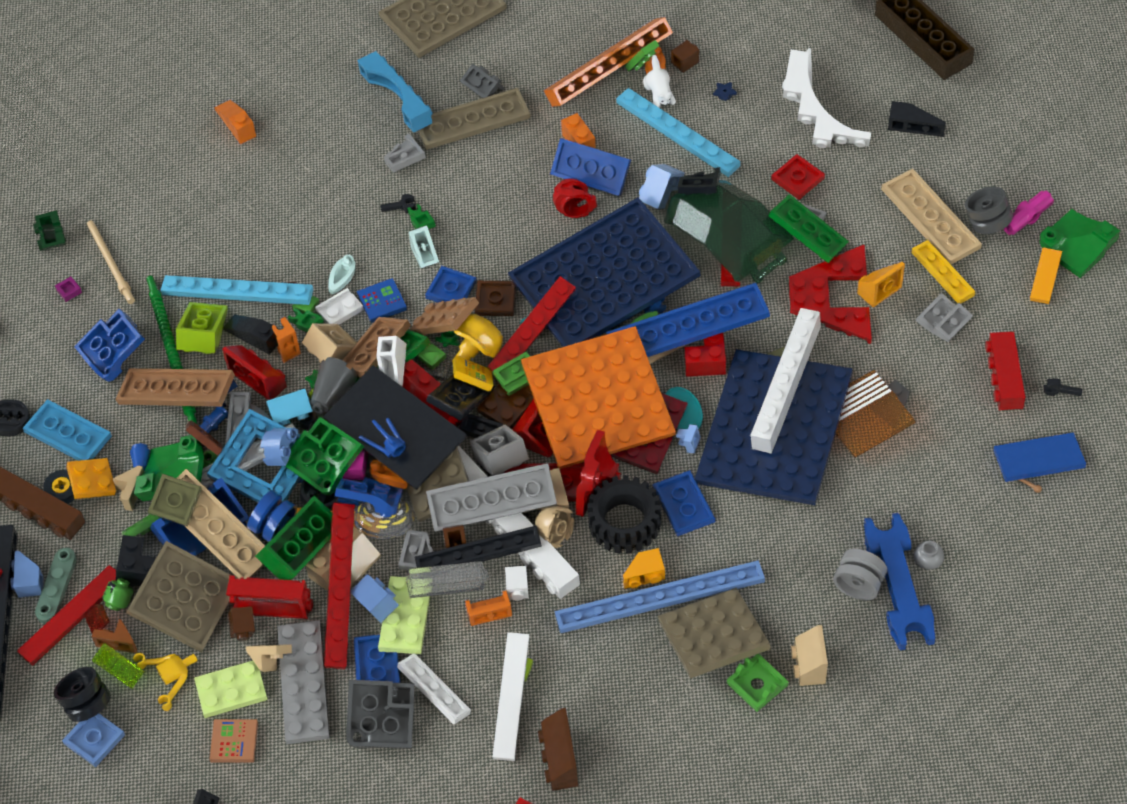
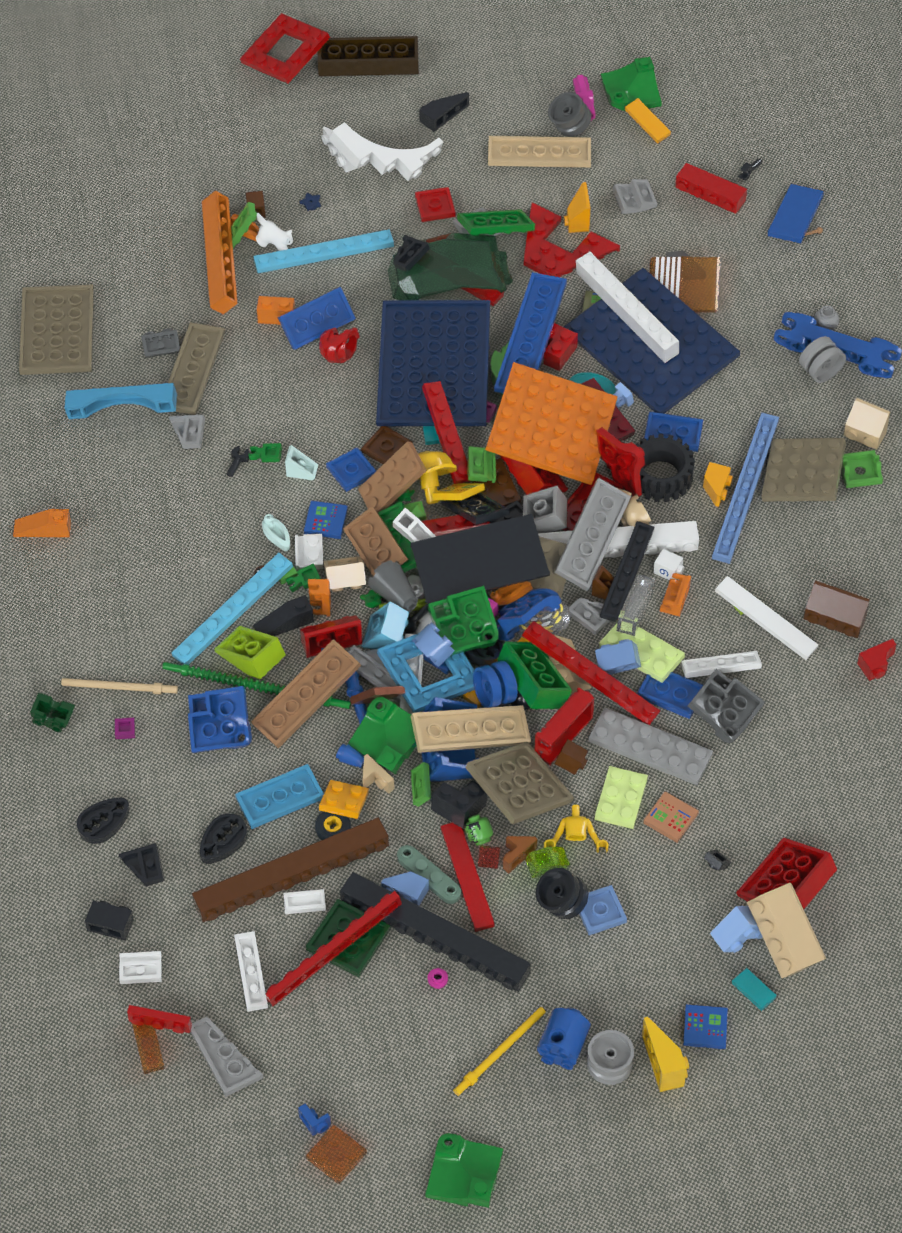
camera: 60 degrees left, 0 degrees up
(174, 500) = (433, 737): olive tile -> none
(266, 655) = (609, 756): tan slope -> none
(393, 445) = (502, 565): blue plant -> none
(658, 185) = (375, 284): light blue brick -> none
(943, 272) = (595, 173): yellow plate -> none

